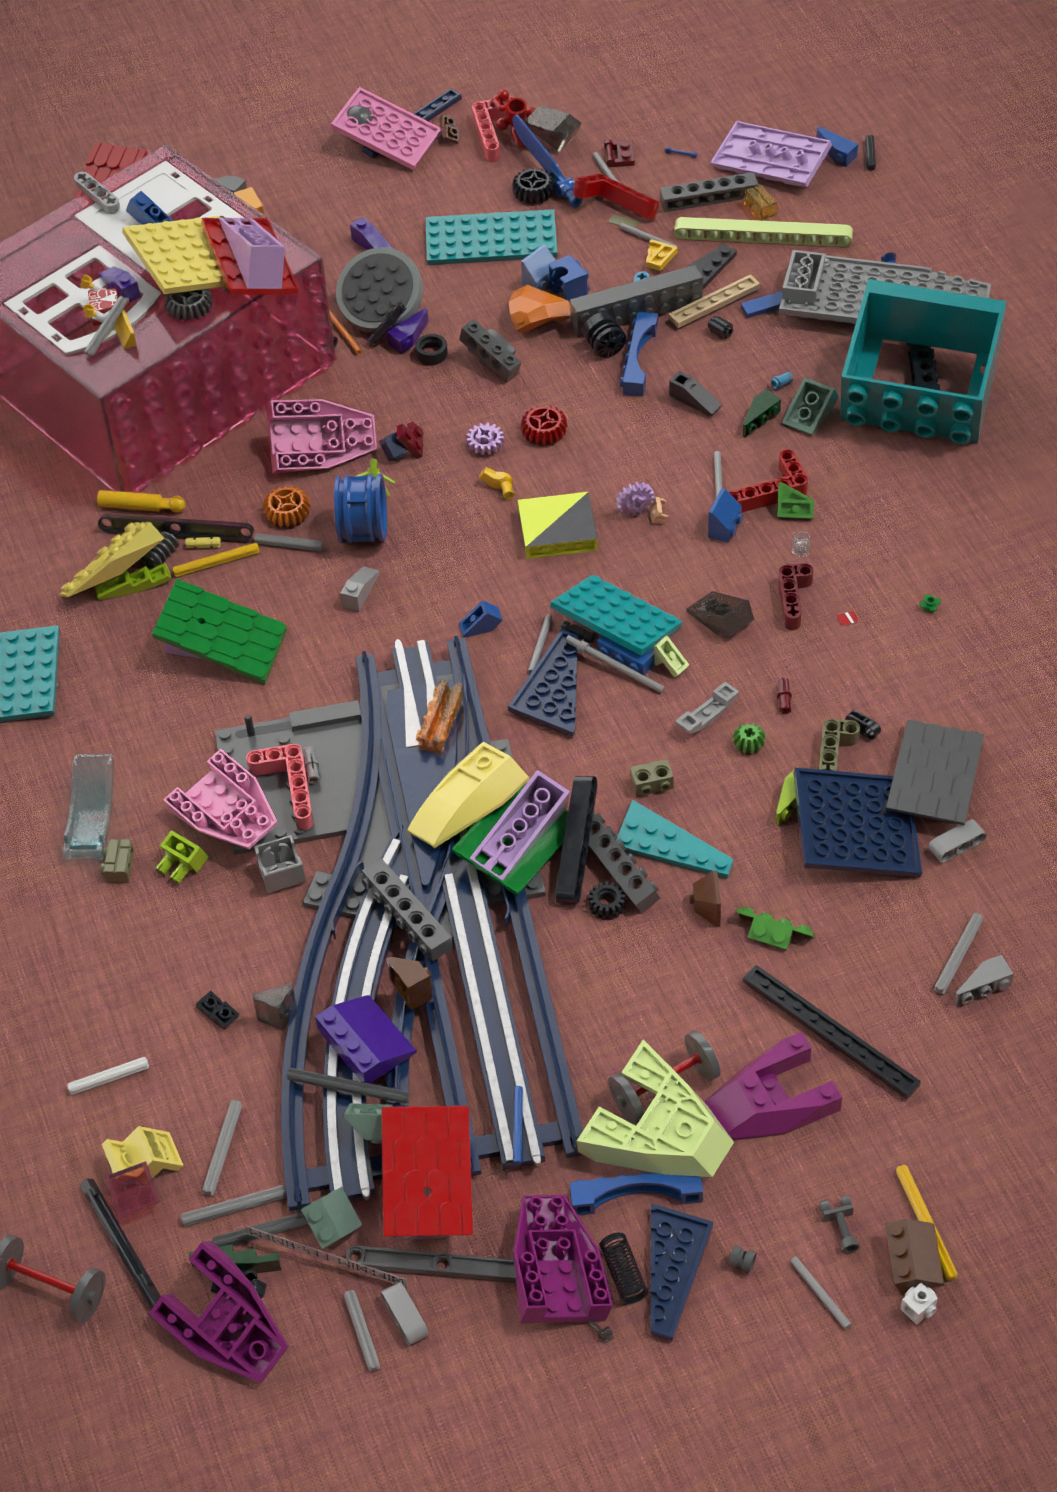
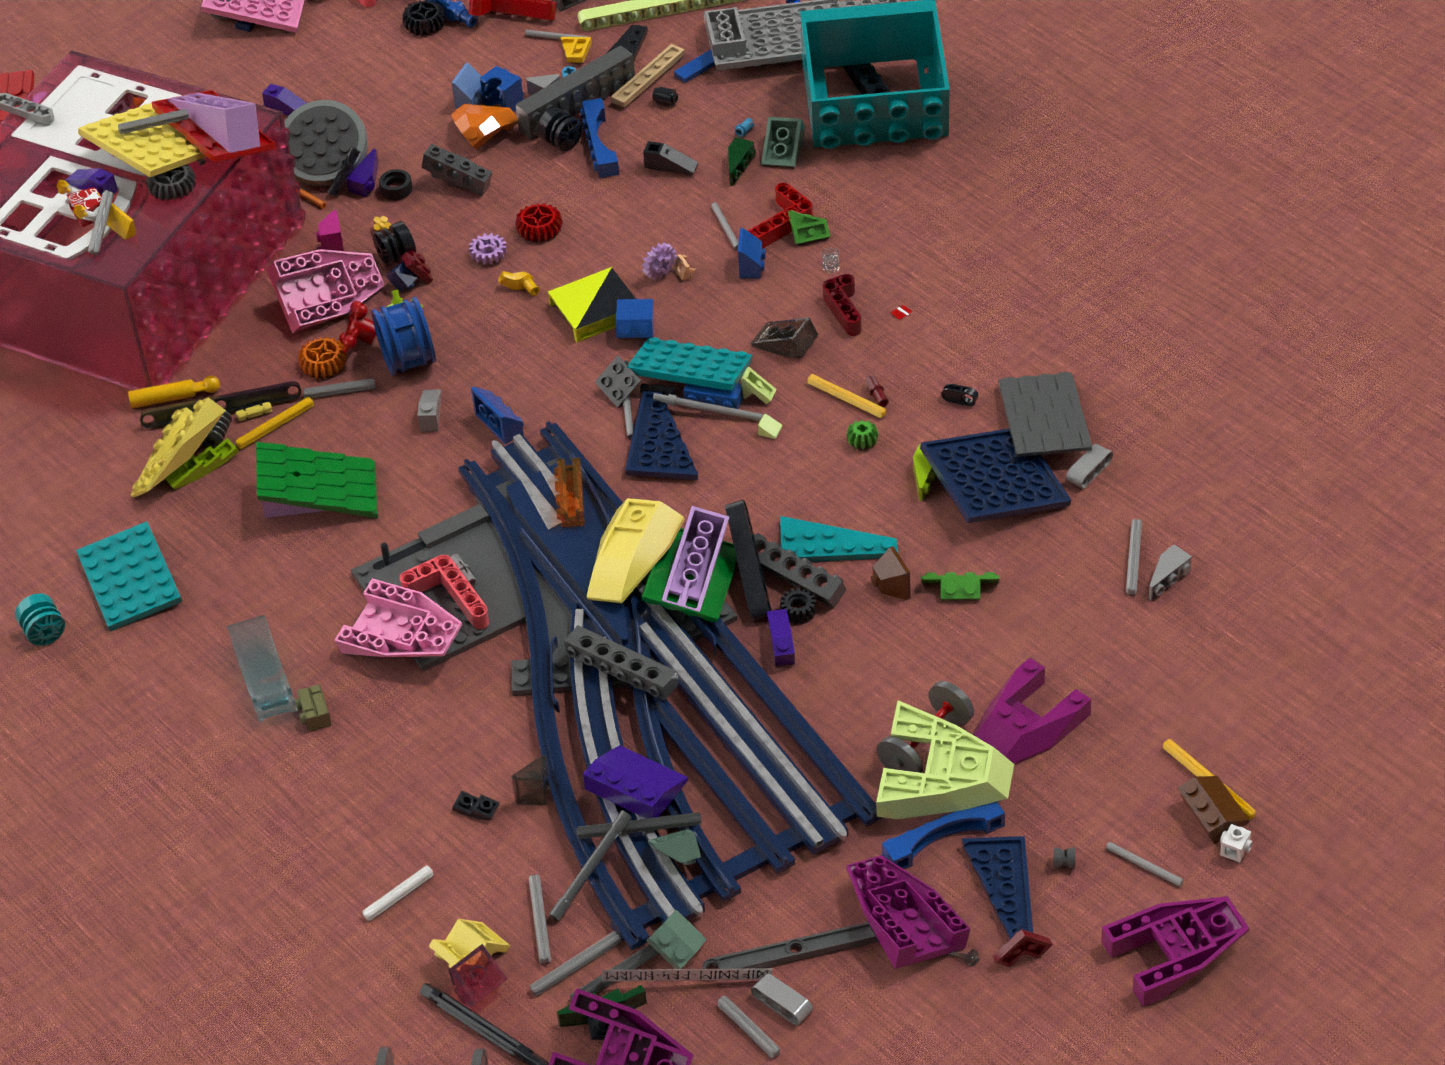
camera: 20 degrees left, 5 degrees down
(145, 210) = (83, 111): blue slope -> none
(180, 849) = (377, 680): lime brick -> none
(190, 238) = (153, 121): none -> light grey axle
(250, 1139) = (564, 902): none -> dark grey piece
(279, 864) = (475, 663): light grey piece -> none
(326, 487) = (358, 328): none -> red wheel
(346, 386) = (330, 233): none -> dark pink slope
(399, 409) = (393, 243): none -> black wheel
(400, 386) = (381, 223): none -> yellow plant
(410, 981) = (656, 718): reddish brown slope -> none
(415, 612) = (496, 415): none -> blue slope
(429, 1151) = (754, 870): red piece -> none
(481, 619) = (562, 404): blue slope -> none
(489, 236) = (401, 73): teal plate -> none
(517, 1128) = (813, 810): blue bar -> none
(540, 612) = (618, 381): none -> dark grey hinge
(573, 929) = (781, 637): none -> dark purple slope
(585, 552) = (635, 318): none -> blue slope
(608, 281) = (538, 83): none -> light grey slope
(616, 219) = (521, 28): olive sticker -> none
(628, 1288) = (975, 915): black piece -> none
(651, 777) = (789, 492): olive brick -> none
(655, 1340) = (1022, 943): none -> dark red plate
(664, 702) = (769, 427): none -> yellowish green slope
(710, 710) = (815, 420): light grey slope -> none
(753, 692) = (846, 396): none -> yellow axle
(824, 1387) = (1188, 933): none -> magenta wedge
(832, 1032) = (1053, 652): black plate -> none
(836, 733) = (939, 410): olive beam -> none
(849, 1243) = (1151, 816): dark grey bar -> none
(930, 603) = (971, 279): green plate -> none

